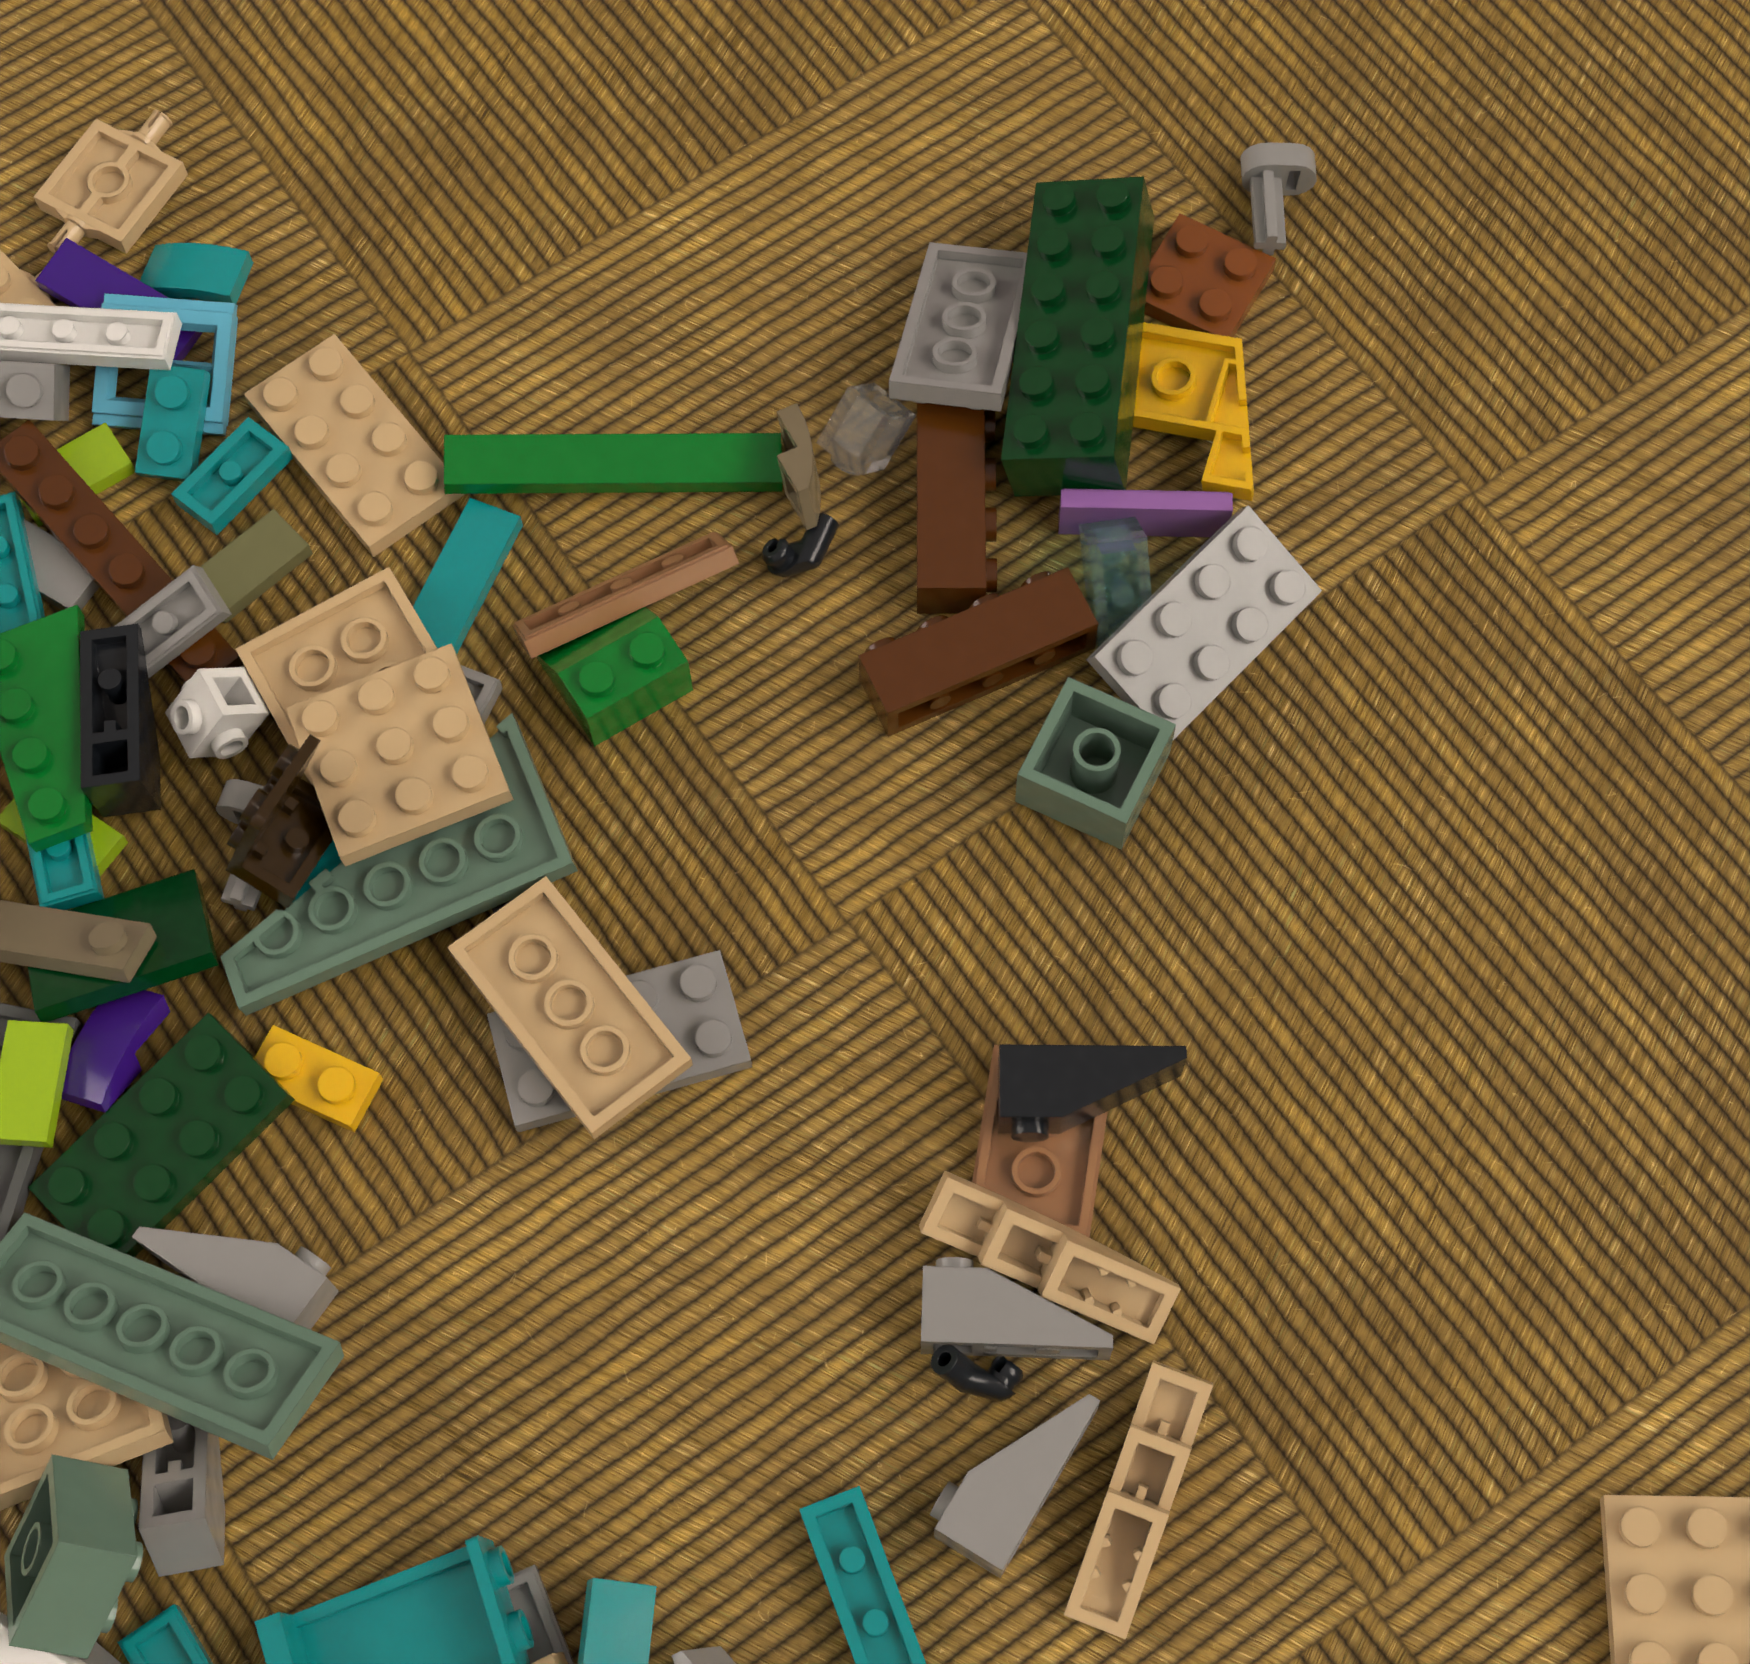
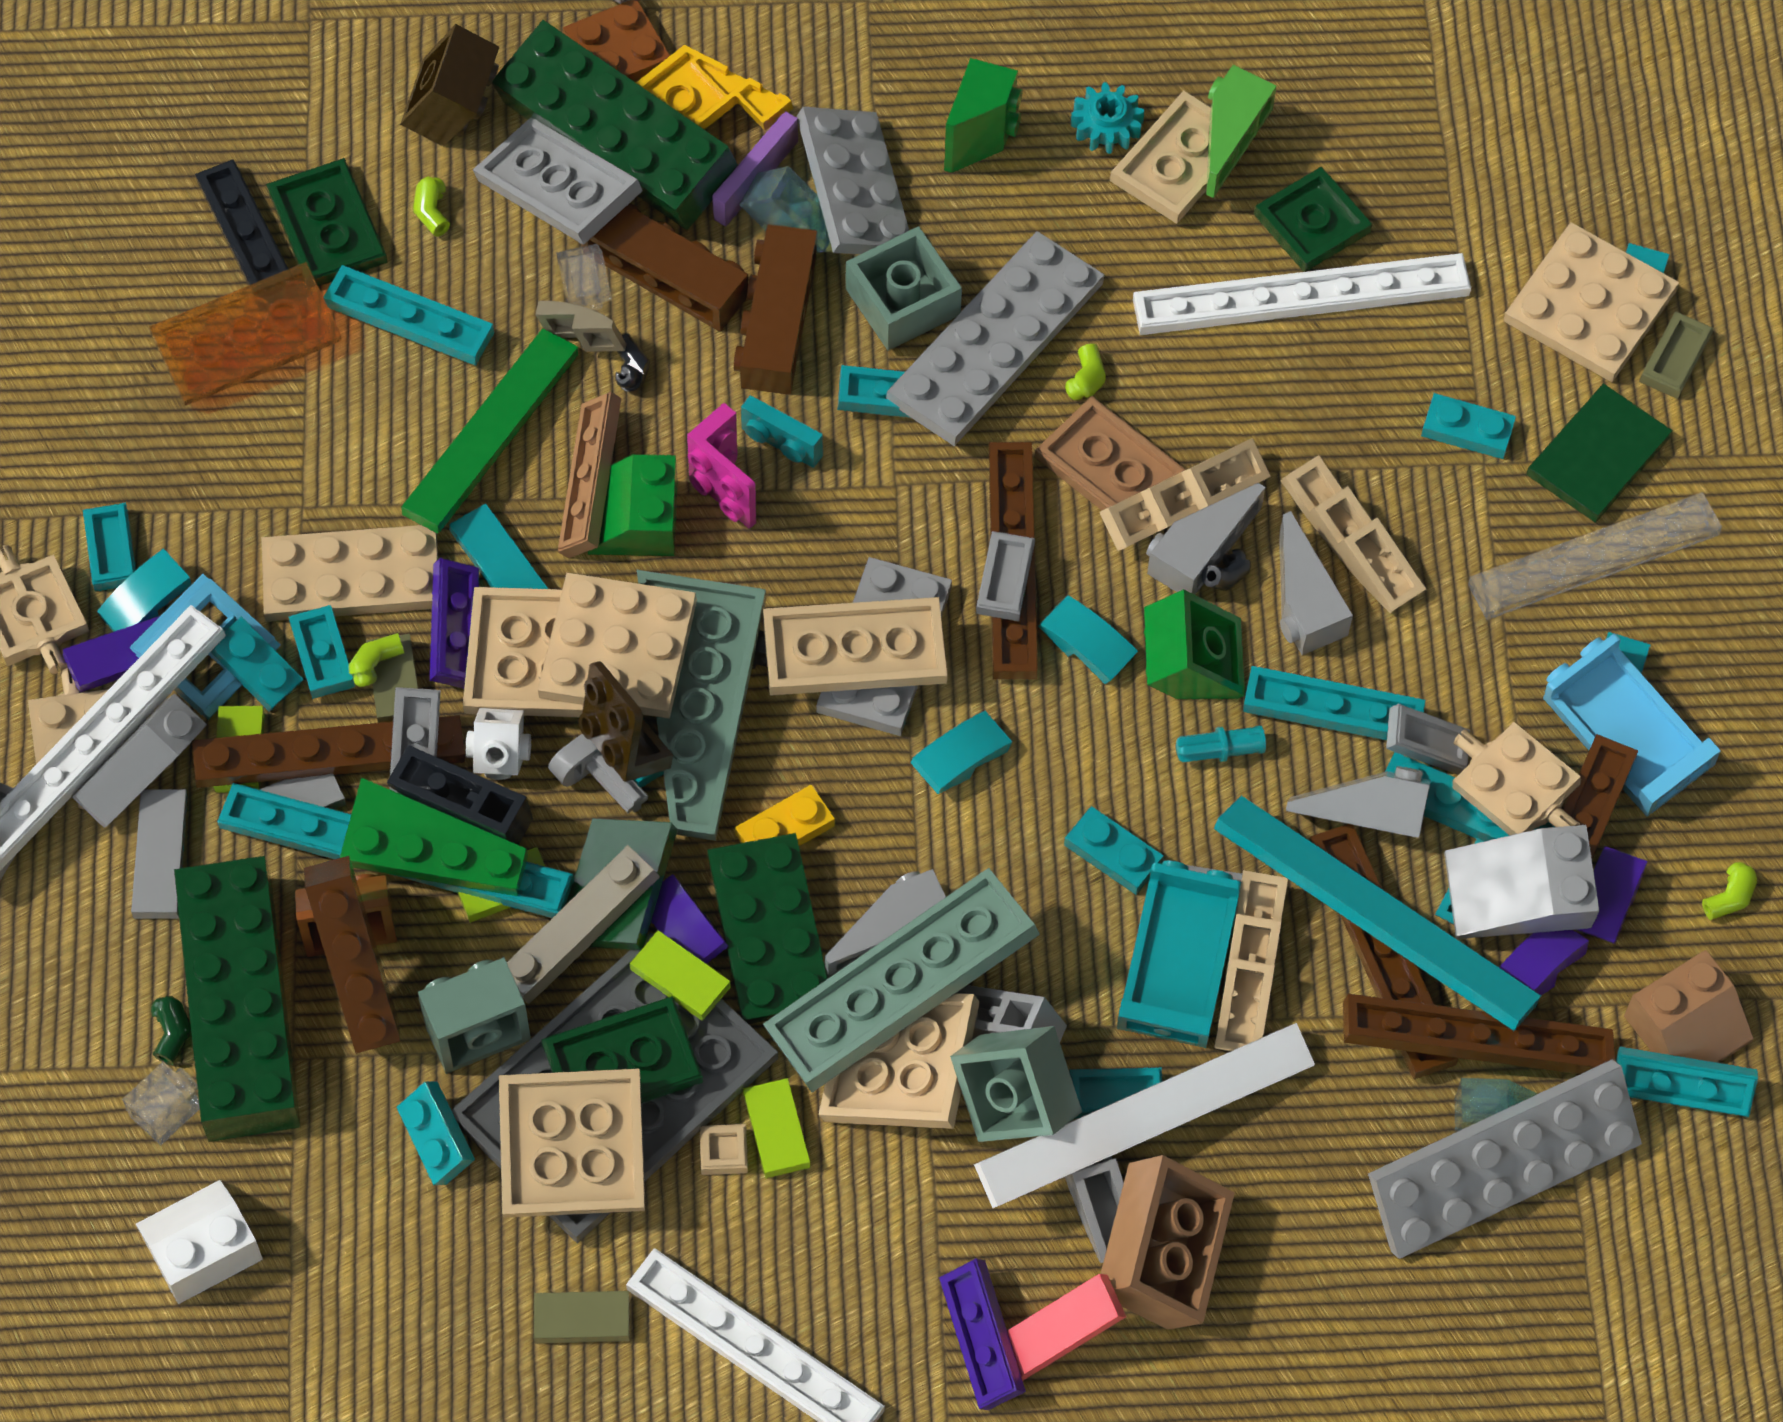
camera: 60 degrees left, 5 degrees down
(240, 207) = (109, 545): none -> teal tile
(251, 521) = (370, 655): none -> lime arm
(393, 546) = (451, 620): none -> dark purple tile
(509, 1473) = (1112, 850): none -> teal plate
(527, 1213) = (959, 751): none -> teal slope
(566, 163) = (245, 333): none -> clear orange plate
(699, 93) = (240, 222): none -> black tile
(703, 299) = (409, 315): none -> teal plate
(720, 691) = (712, 467): none -> dark pink bracket
(730, 1514) = (1221, 744): none -> teal axle
(766, 155) = (327, 221): none -> dark green tile
(775, 1265) = (1089, 637): none -> teal slope
(784, 1116) = (1005, 576): none -> light grey tile
(814, 777) = (783, 432): none -> teal plate
(822, 1112) = (1013, 513): none -> reddish brown plate
(840, 1402) = (1193, 648): none -> green slope
(854, 228) = (427, 194): none -> lime arm
(948, 827) = (866, 390): none -> teal plate
(1000, 148) = (451, 86): none -> dark brown brick
(1065, 1085) = (1089, 426): black slope -> none
(1113, 906) = (995, 338): none -> light grey plate
(1163, 1032) = (1090, 377): none -> lime arm
(1389, 698) = (982, 114): none -> green slope
(1406, 1549) = (1468, 426): none -> teal plate
(1451, 1228) = (1301, 294): none -> white tile
(1525, 959) = (1170, 160): none -> tan plate
(1536, 846) = (1107, 117): none -> teal gear
(1558, 1170) = (1312, 219): none -> dark green plate
(1620, 985) = (1237, 113): none -> bright green slope

